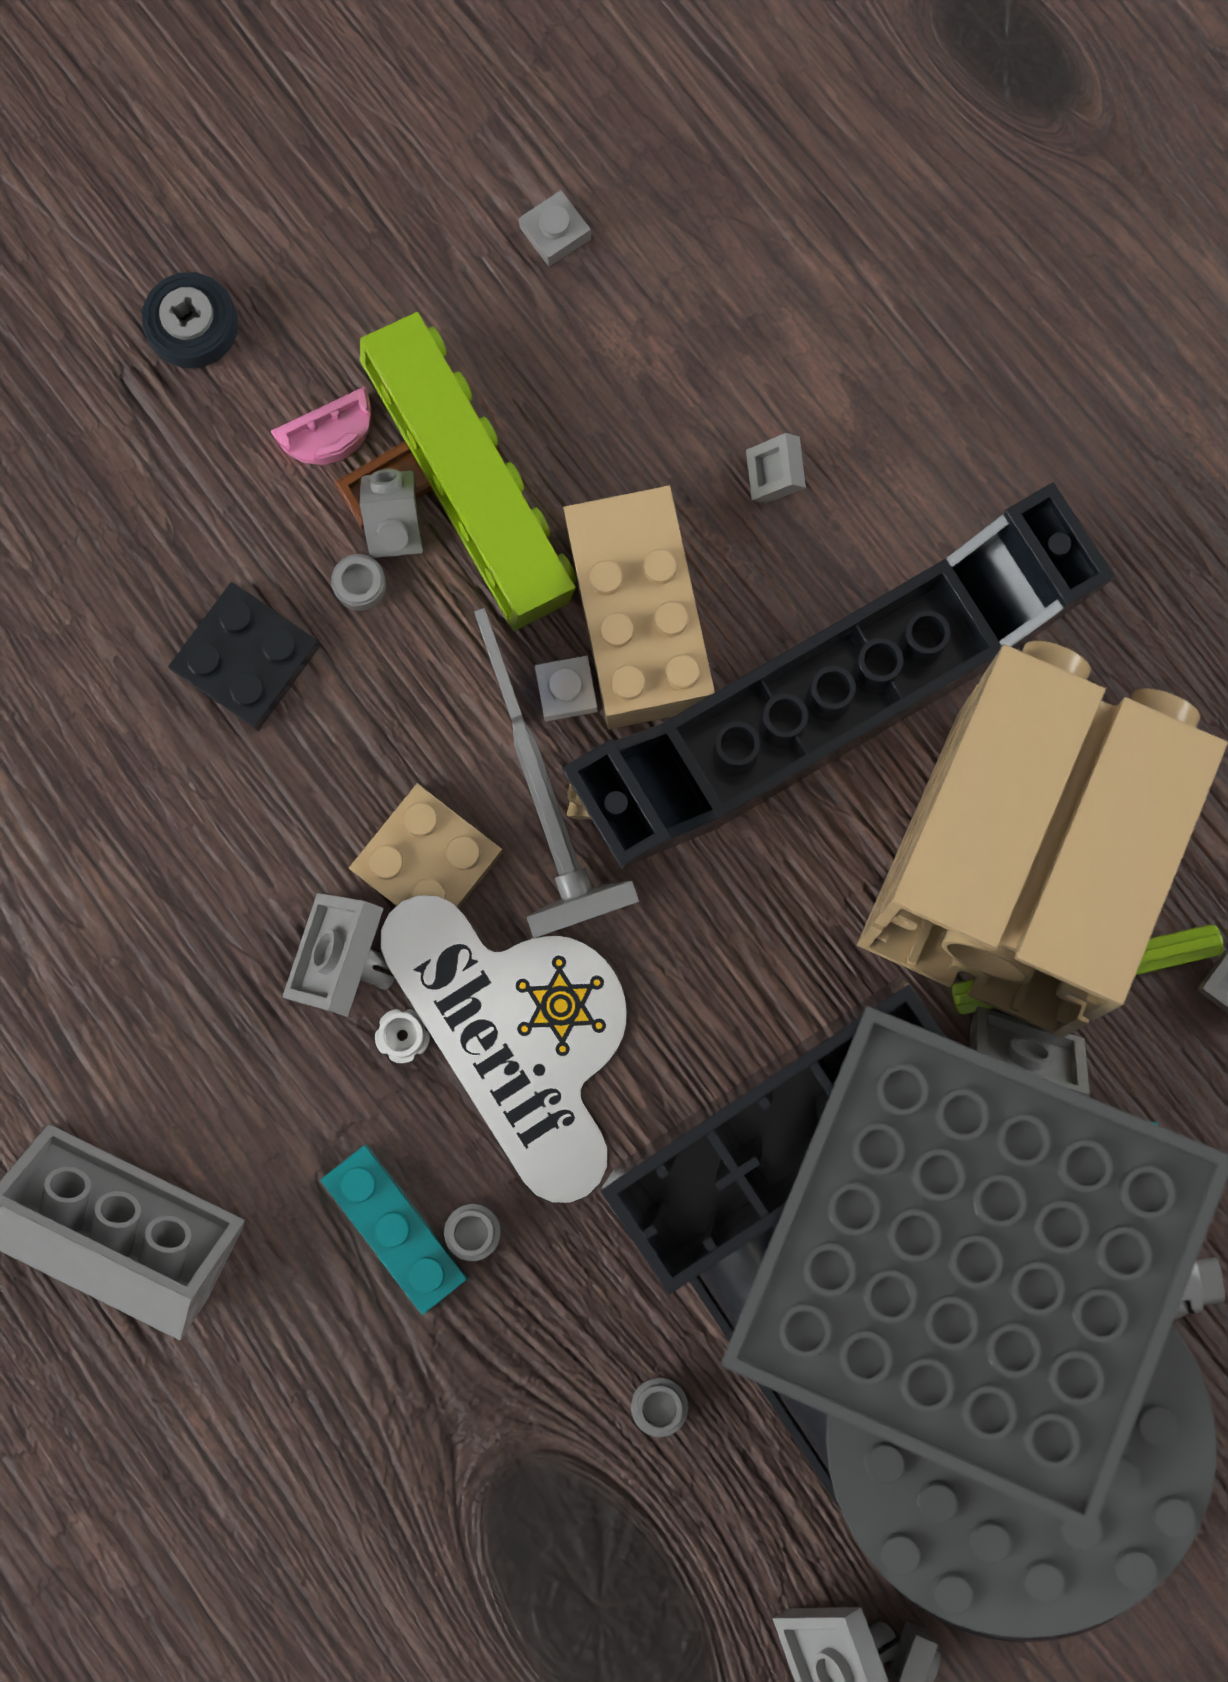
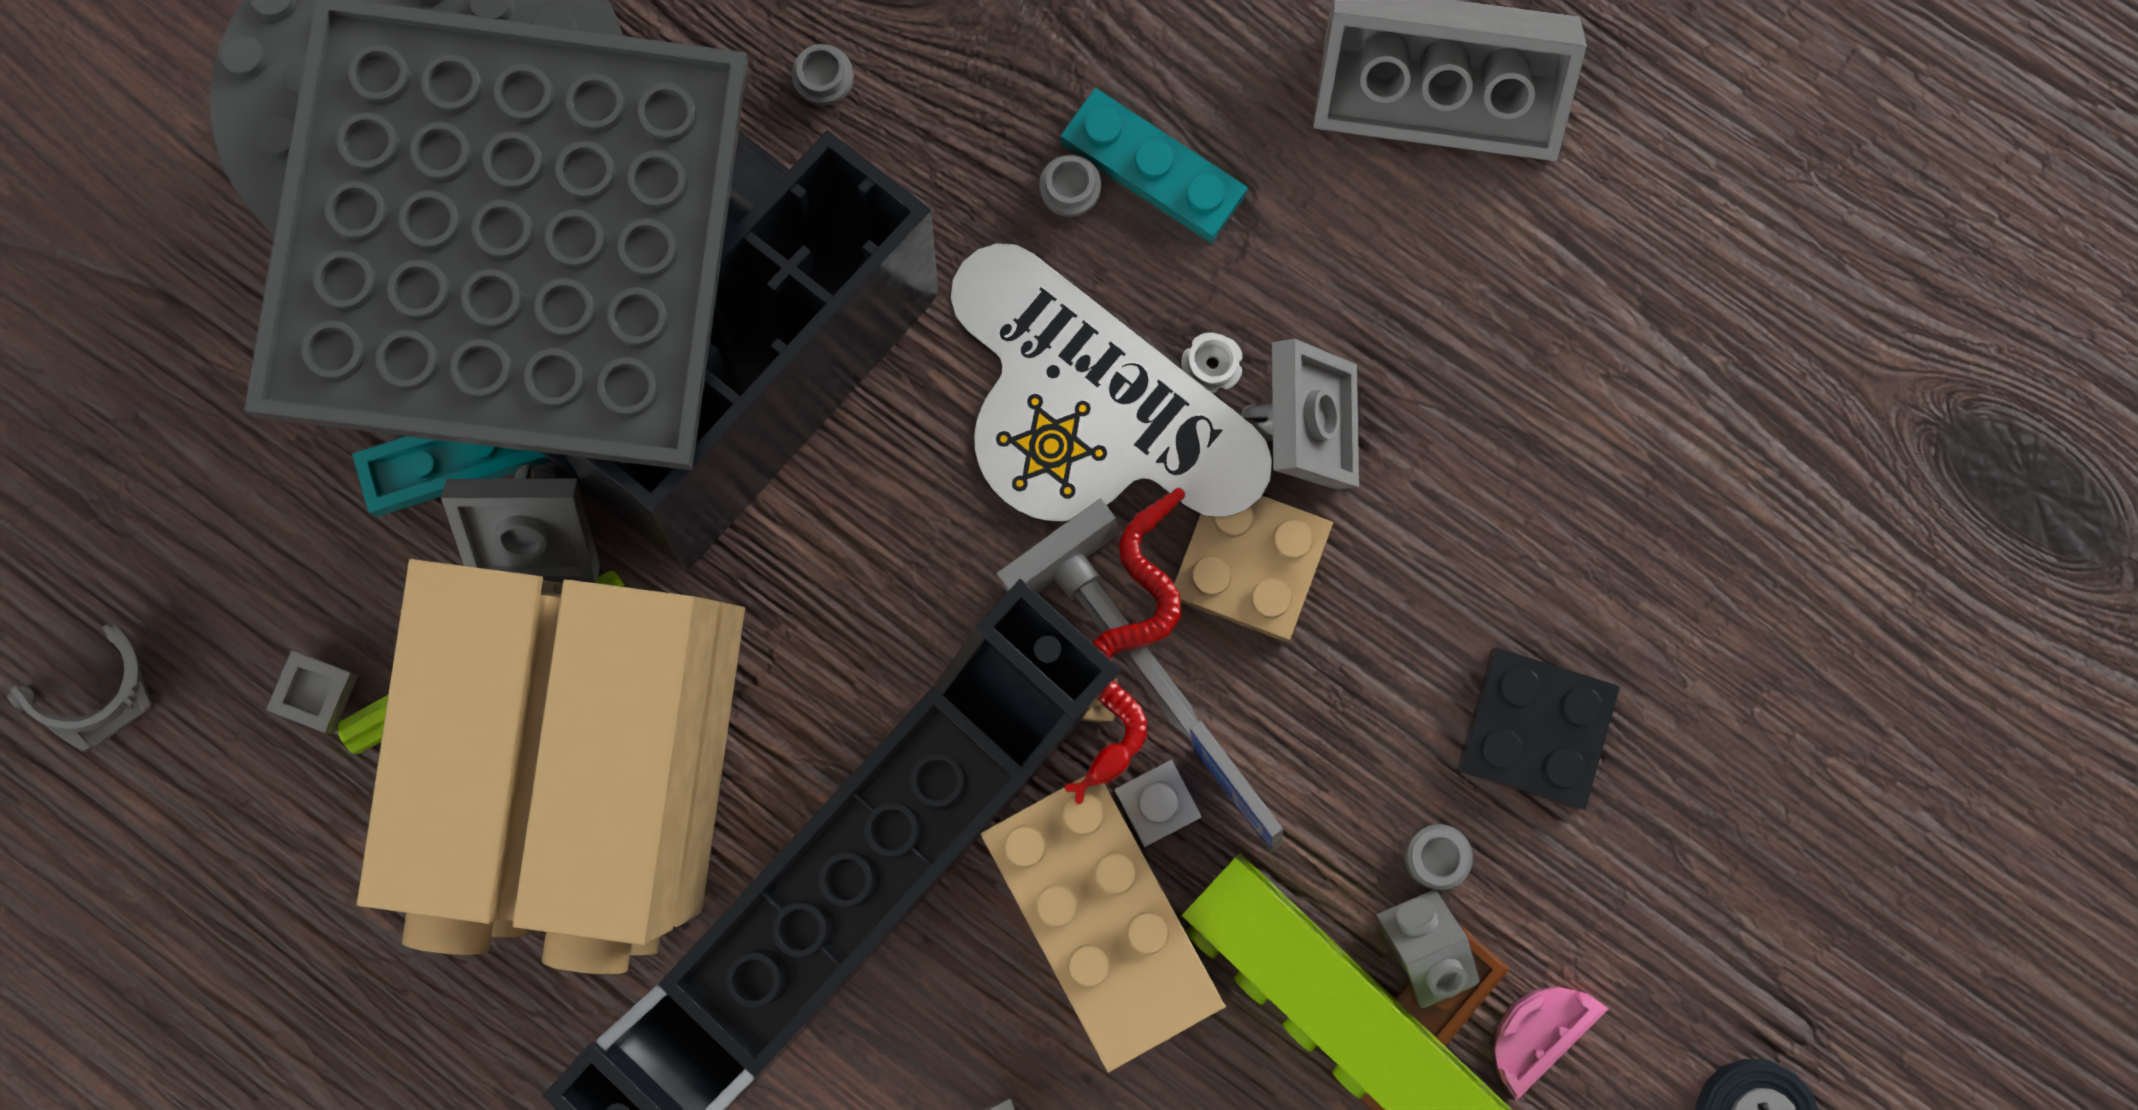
camera: 160 degrees right, 0 degrees up
(587, 717) = (1116, 757): none -> red animal

